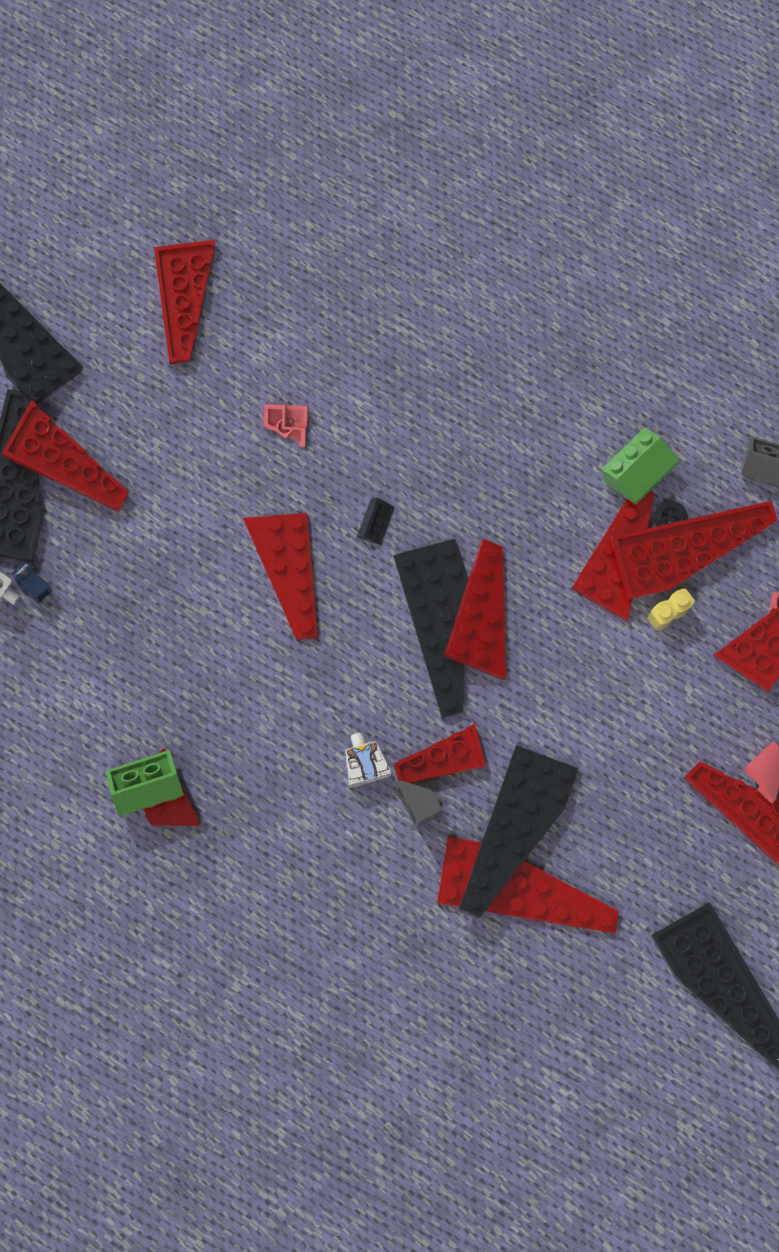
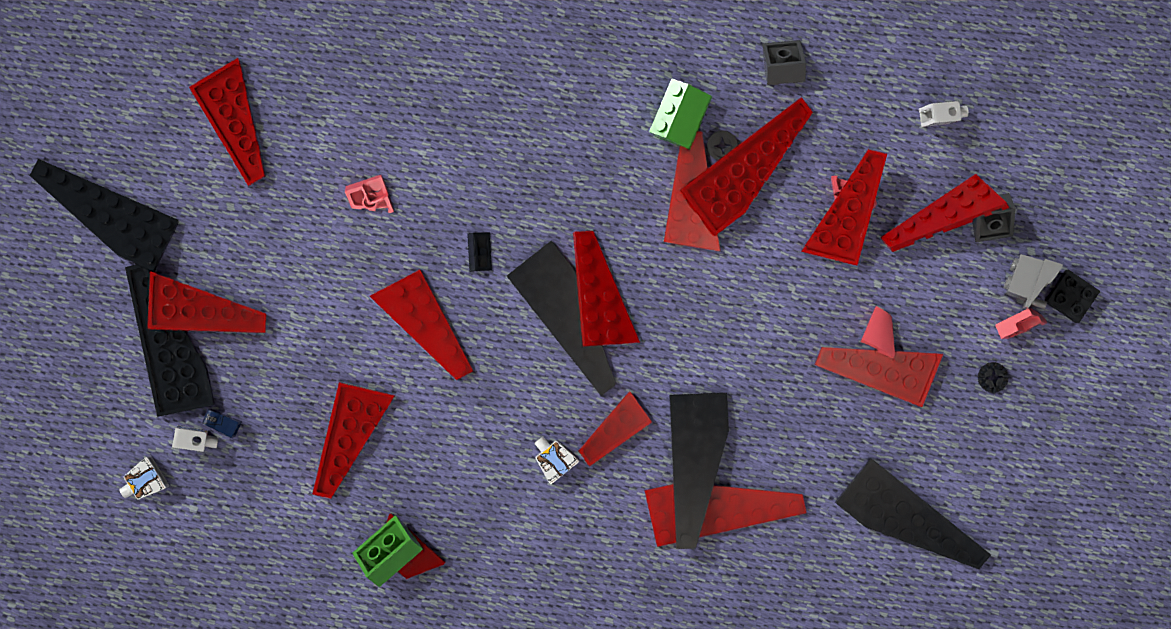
camera: 20 degrees left, 15 degrees up
(164, 640) = (351, 424): none -> red wing
(419, 803) = (612, 477): dark grey slope -> none
(674, 608) = (755, 223): light yellow brick -> none

